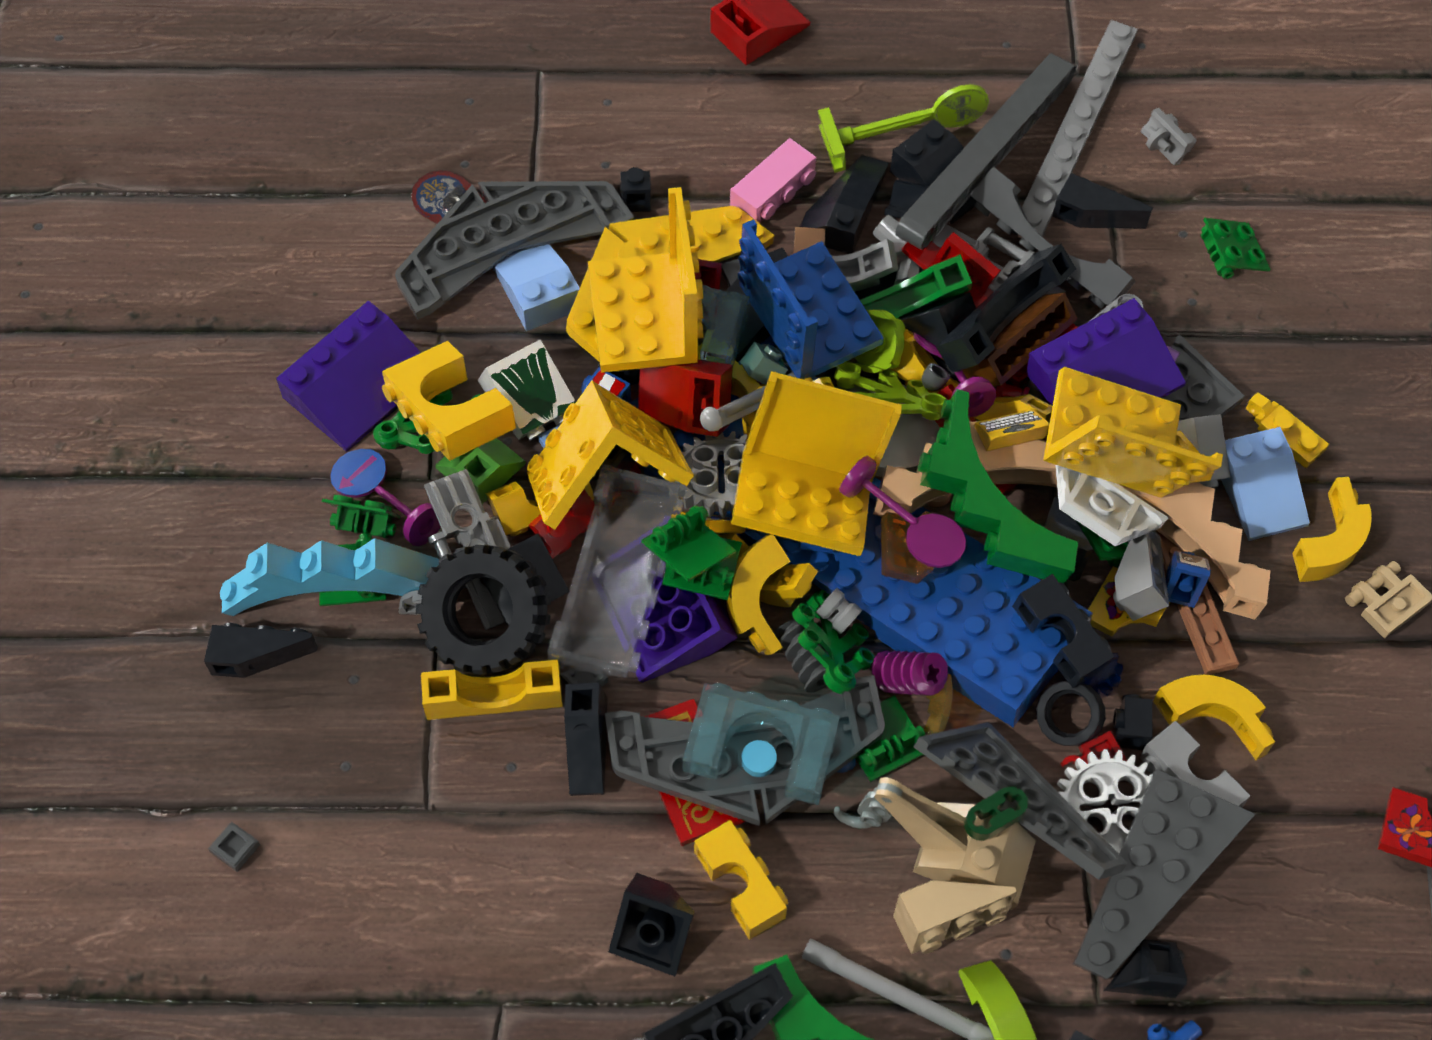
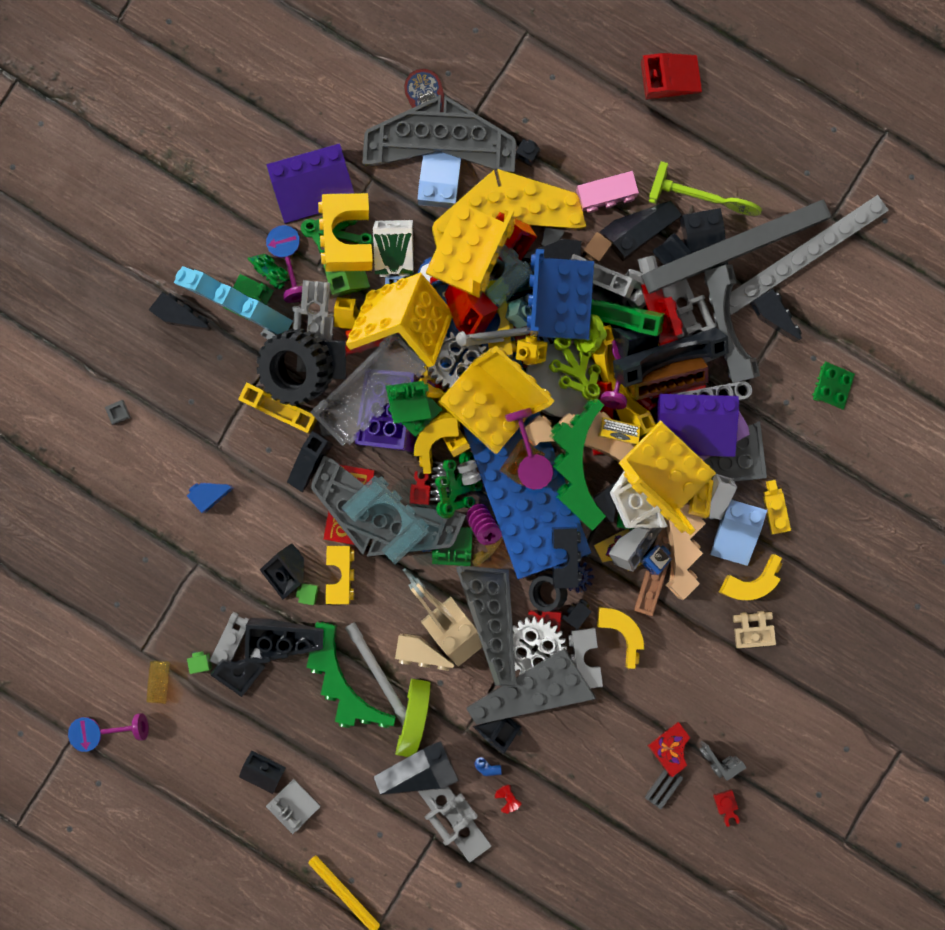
camera: 35 degrees right, 25 degrees up
(456, 880) = (206, 495): none -> blue slope
(710, 937) = (307, 593): none -> bright green plate
(759, 758) = (381, 525): medium azure tile -> none
(779, 684) = (420, 492): none -> red plate
(934, 377) = (605, 373): dark grey hinge -> none
(999, 820) = (467, 633): dark green beam -> none
(1167, 137) = (848, 293): light grey hips -> none

